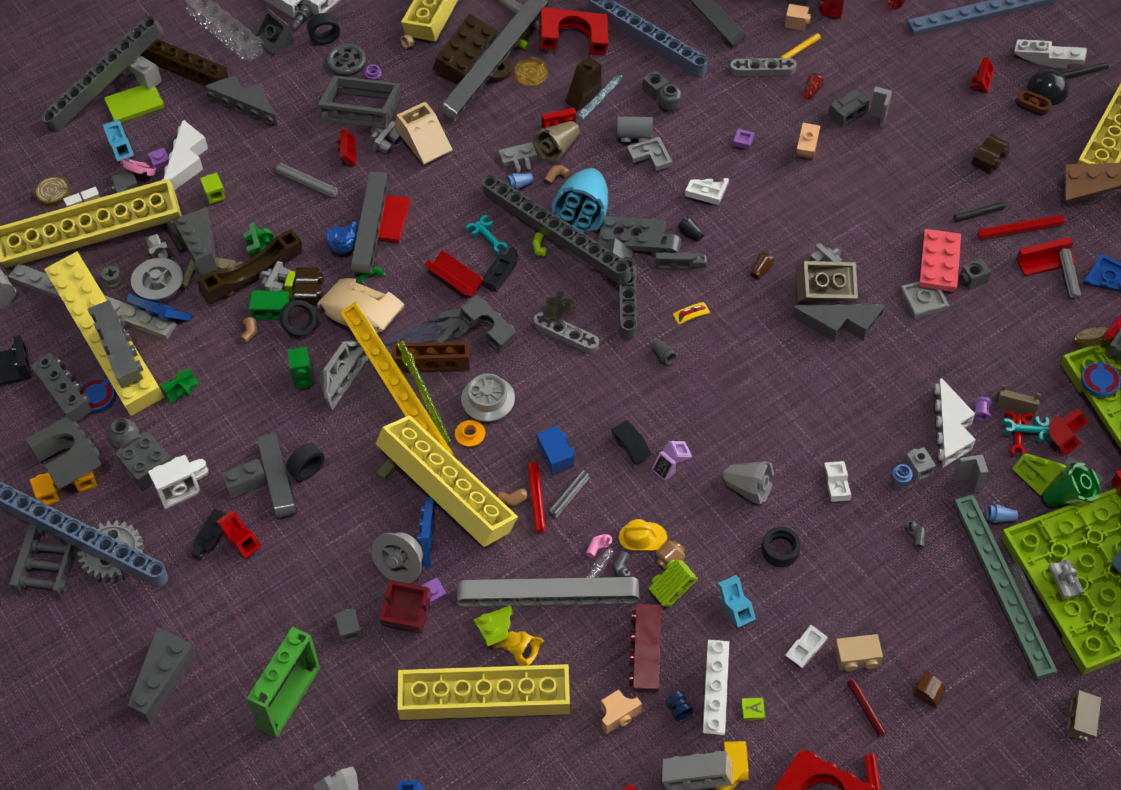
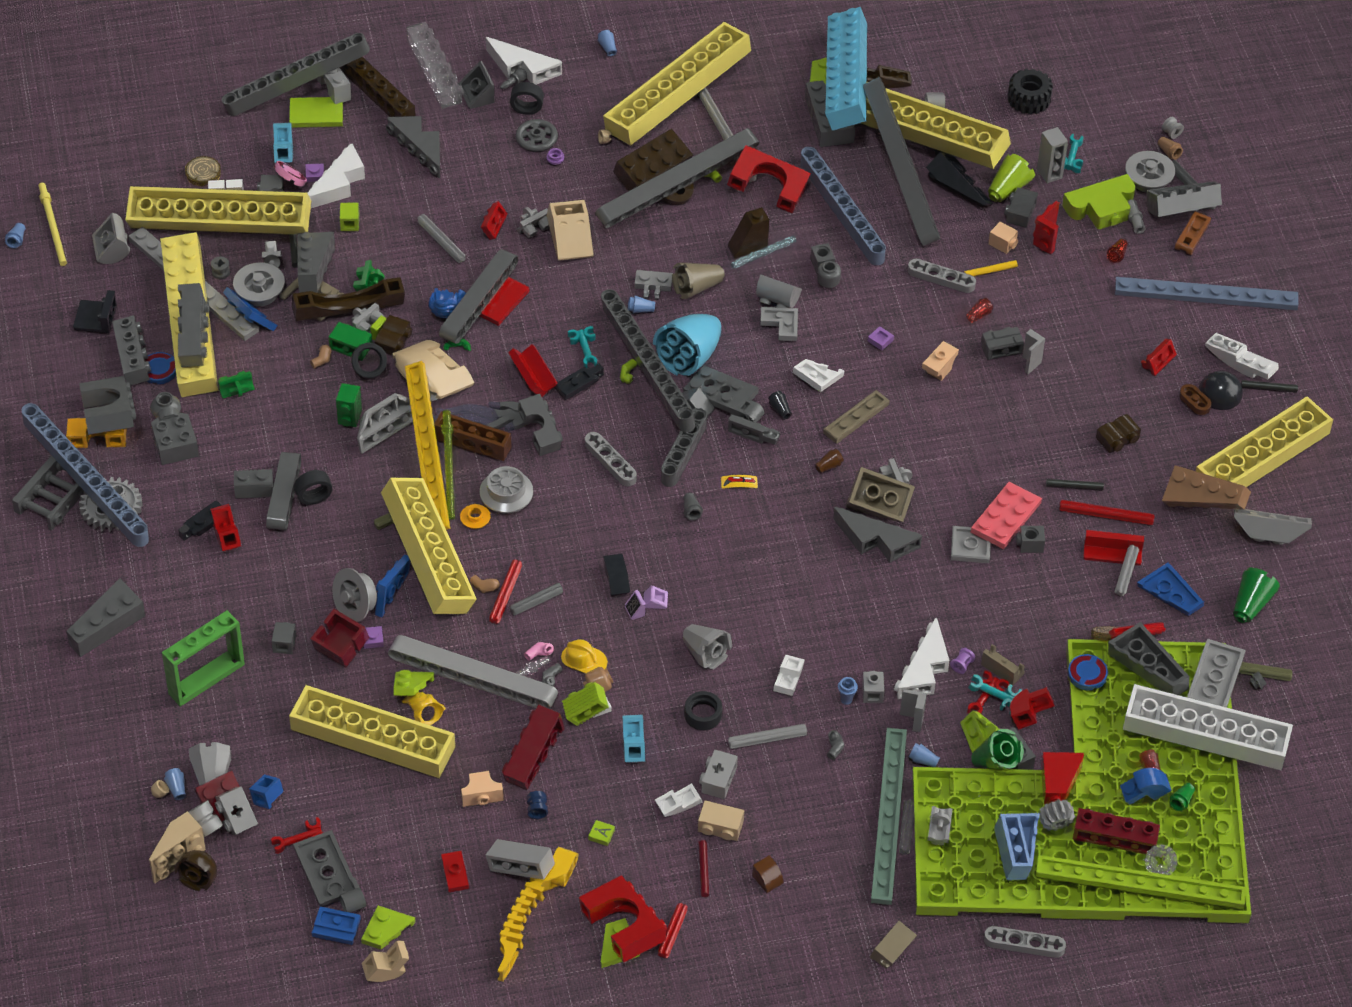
camera: 20 degrees right, 5 degrees down
(177, 479) = (194, 463): white hinge -> none
(358, 114) = (491, 180): dark grey window -> none
(531, 71) = (709, 205): clear yellow tile -> none
(555, 449) = (542, 556): blue brick -> none
(556, 307) = (611, 432): clear smoke hips -> none
(558, 117) = (710, 257): red plate -> none
(558, 170) = (682, 308): medium nougat arm -> none
(715, 687) = (577, 794): white slope -> none
(761, 216) = (856, 416): none -> dark tan tile
(830, 595) = (719, 774): none -> light grey brick
(851, 549) = (767, 736): none -> light grey axle

